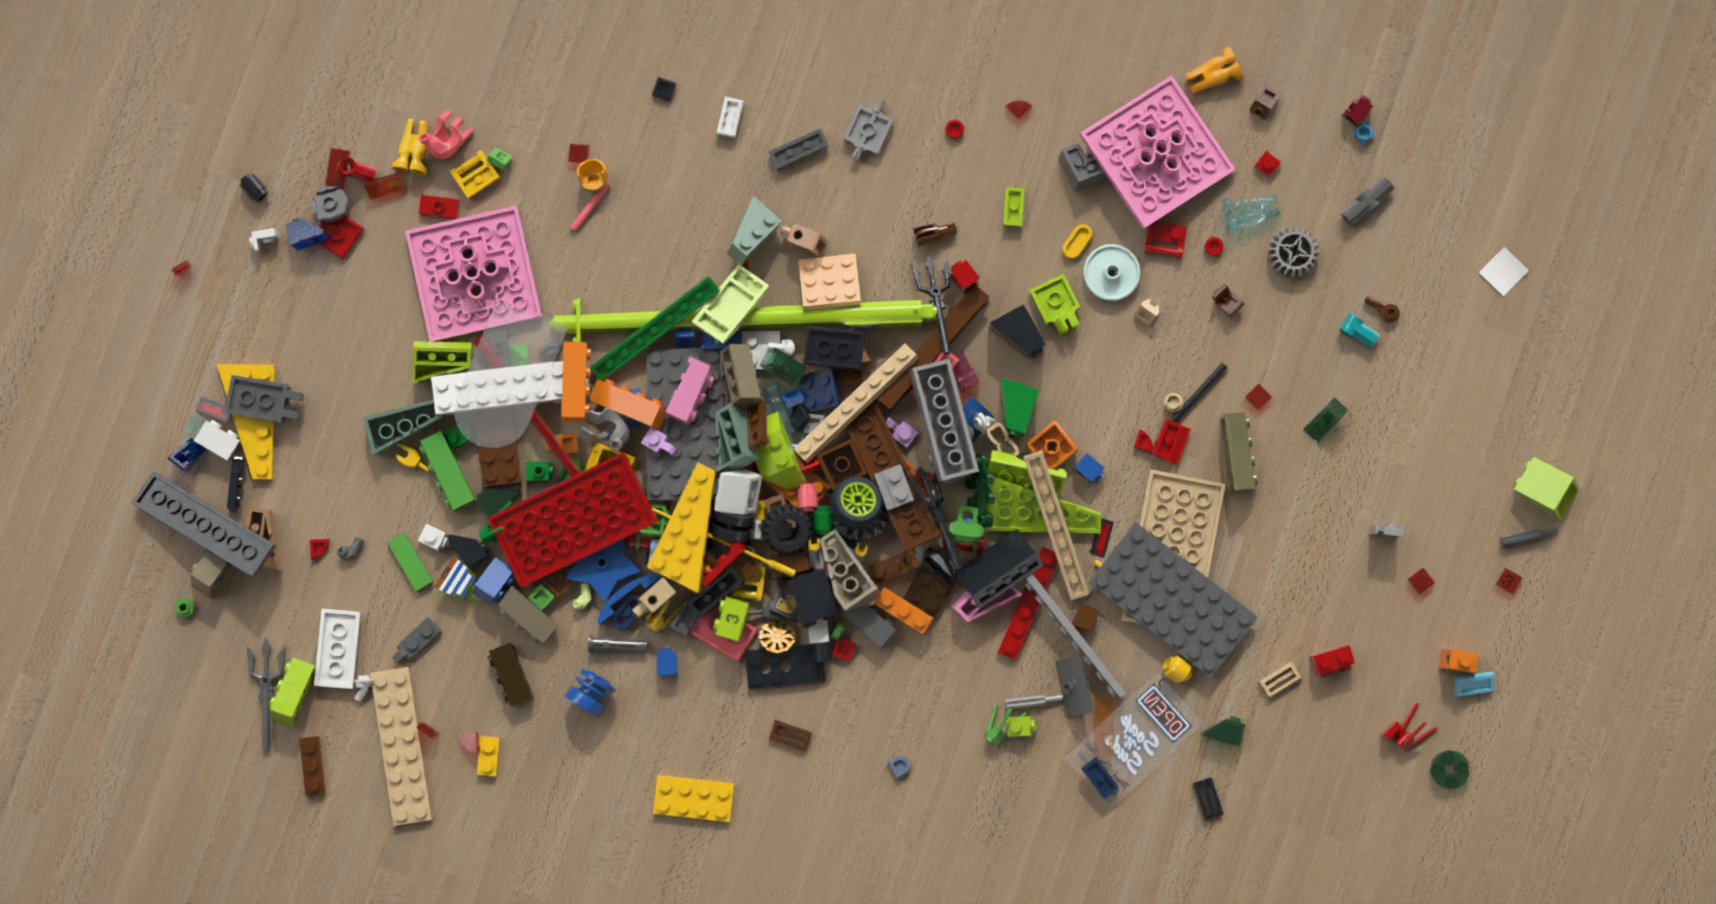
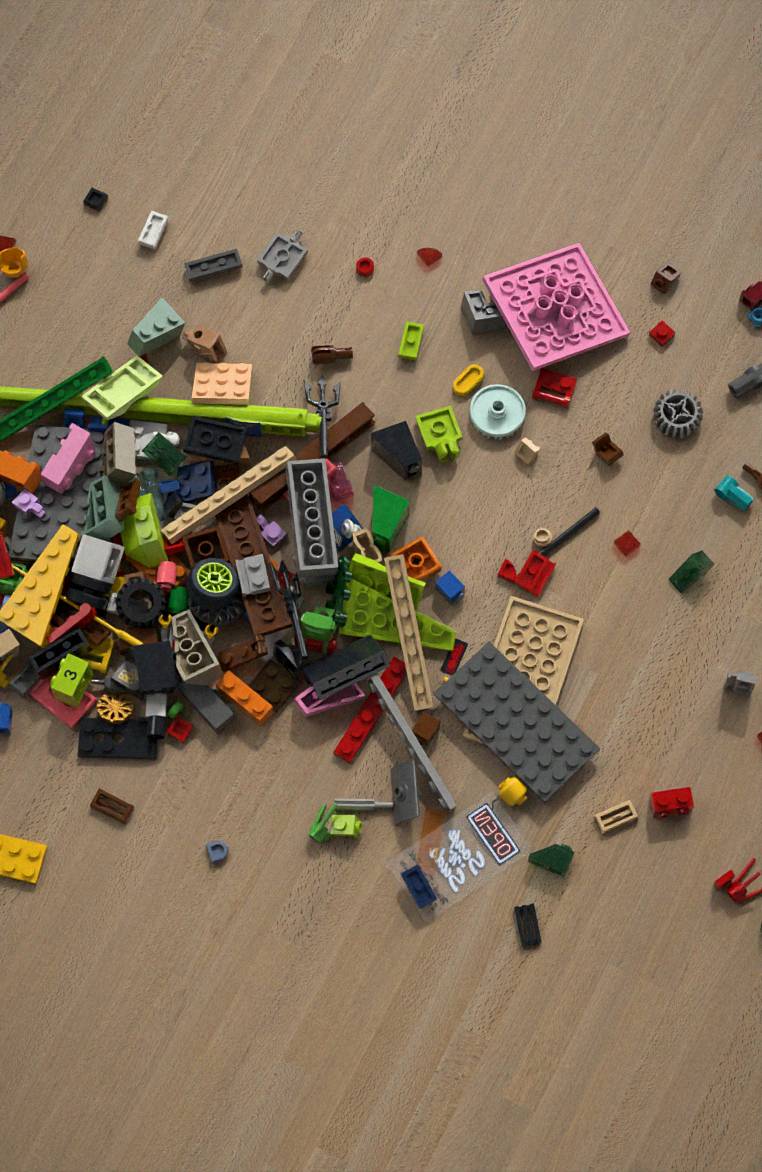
camera: 10 degrees right, 15 degrees down
(964, 275) = (352, 392): red brick -> none
(1212, 74) = (620, 245): light orange piece -> none
(1213, 246) = (600, 401): red tile -> none
(1237, 452) = (600, 589): olive slope -> none
(1252, 211) = (640, 371): clear light blue piece -> none

